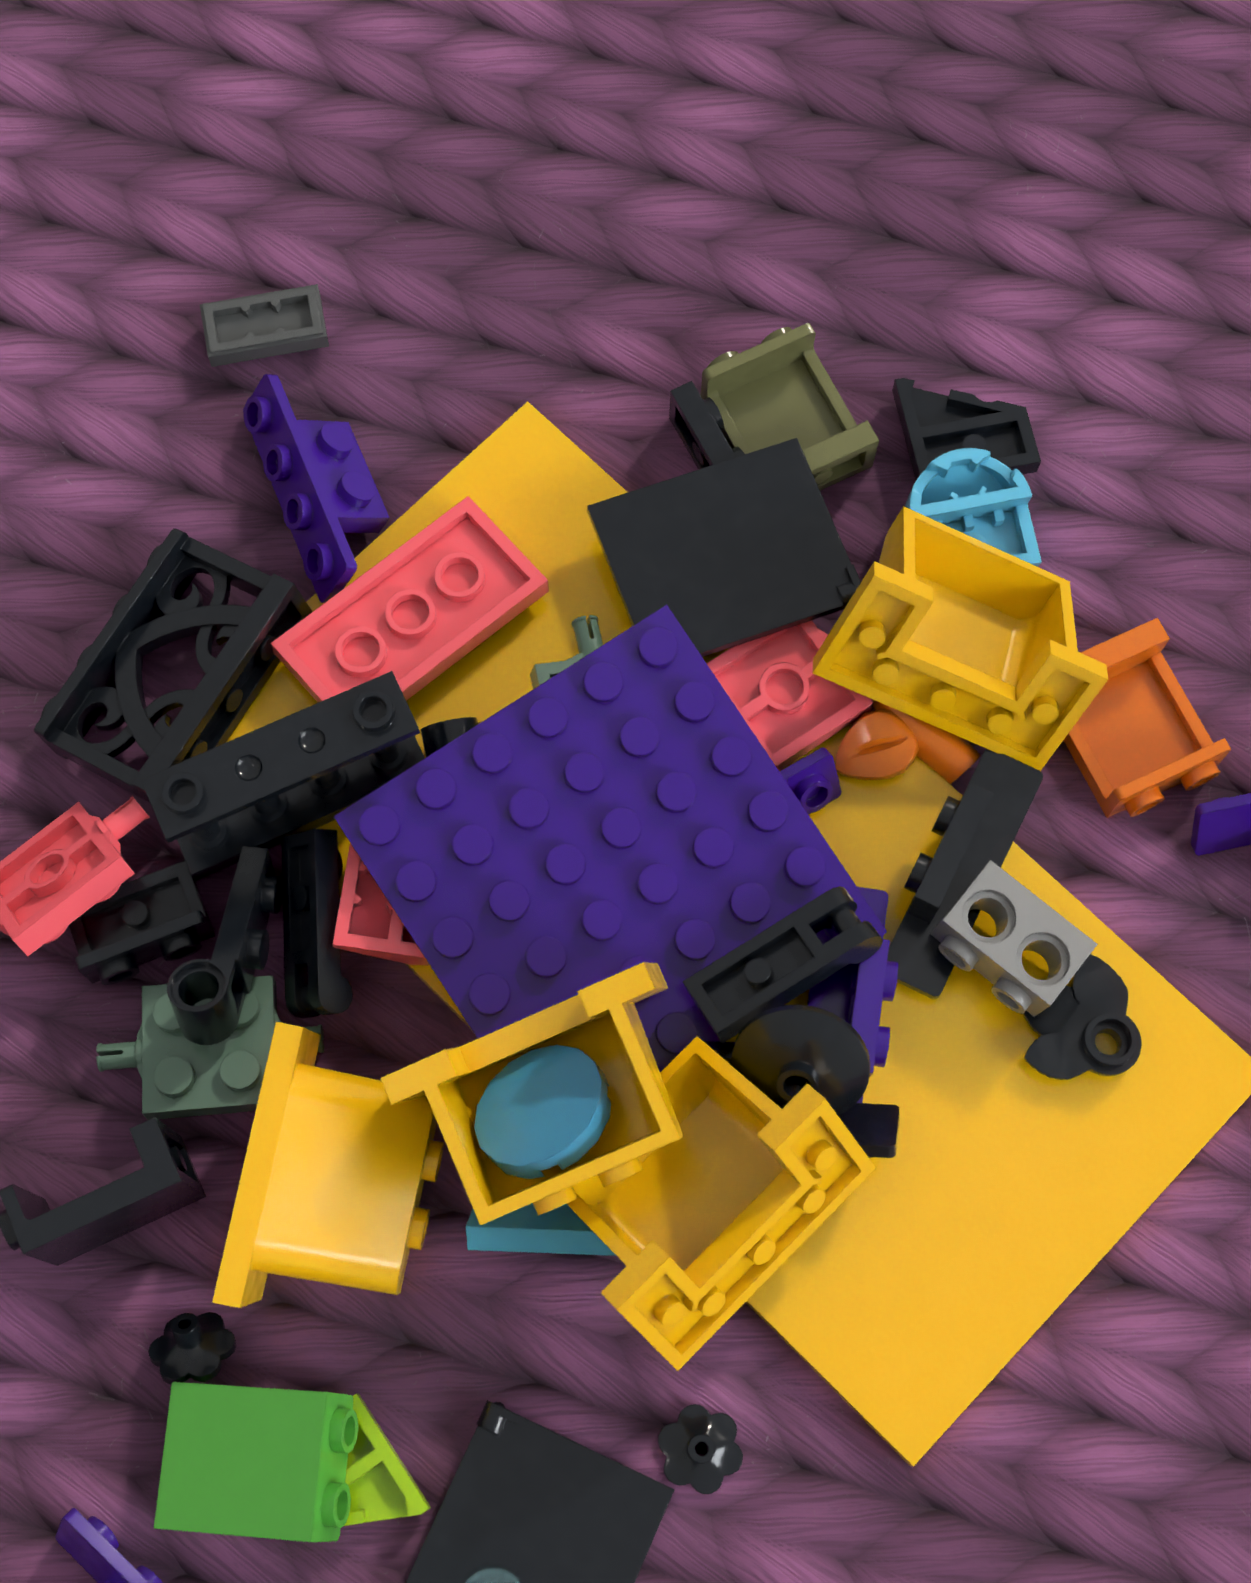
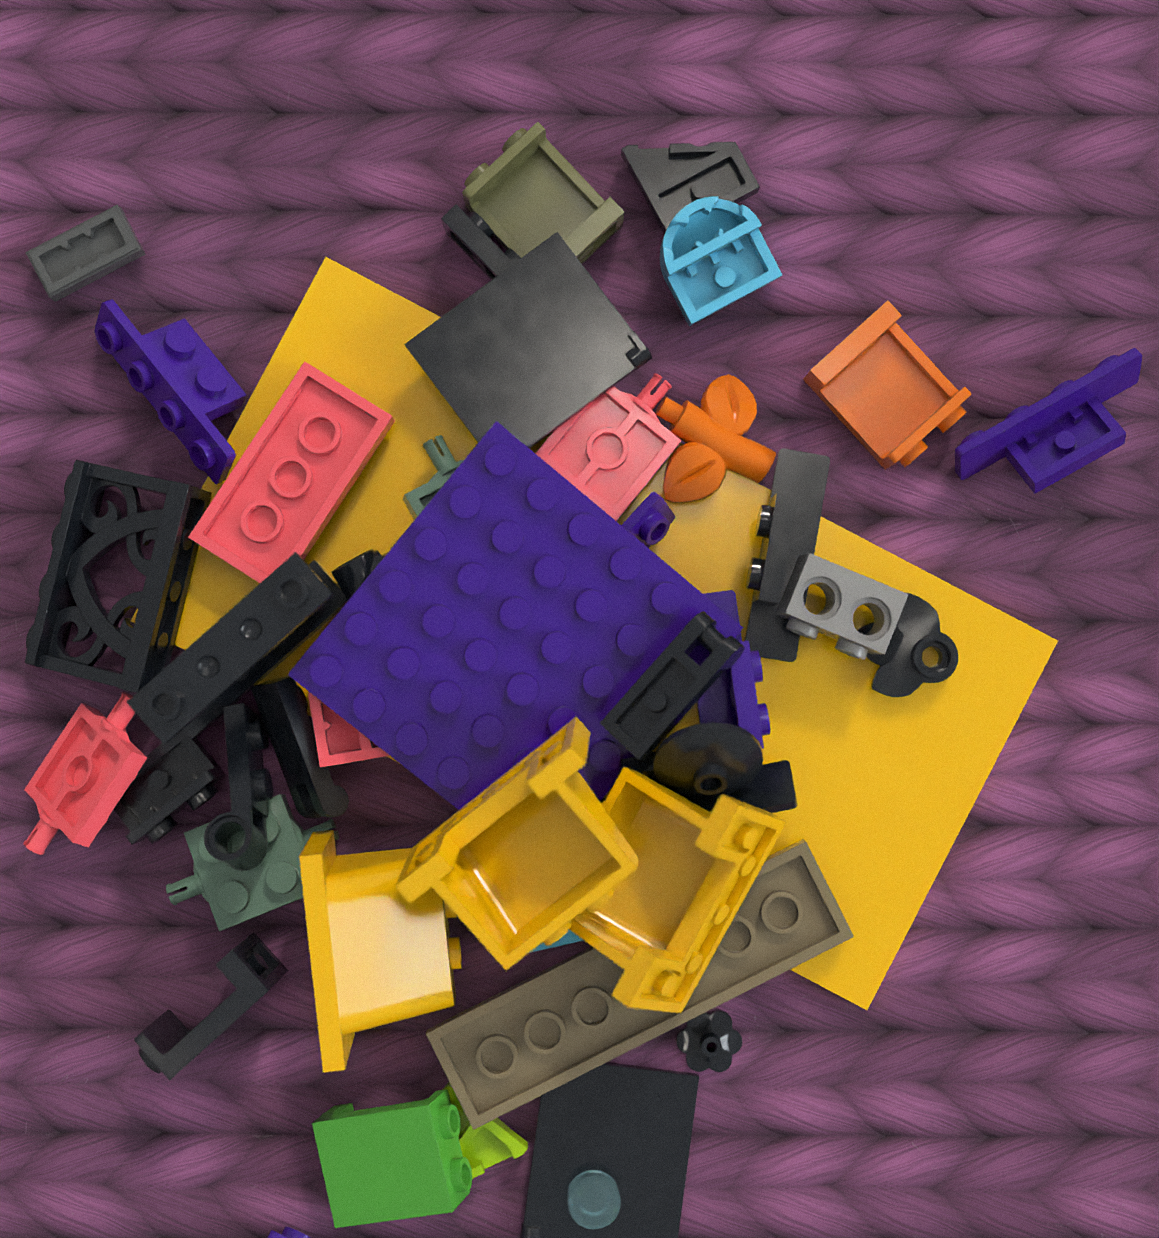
camera: 20 degrees left, 15 degrees up
(192, 1347) = (316, 1090): black plant -> none
(543, 1111) = (525, 865): dark azure tile -> none
(565, 1353) = (571, 1023): none -> dark tan plate
(964, 642) = (741, 369): yellow windscreen -> none

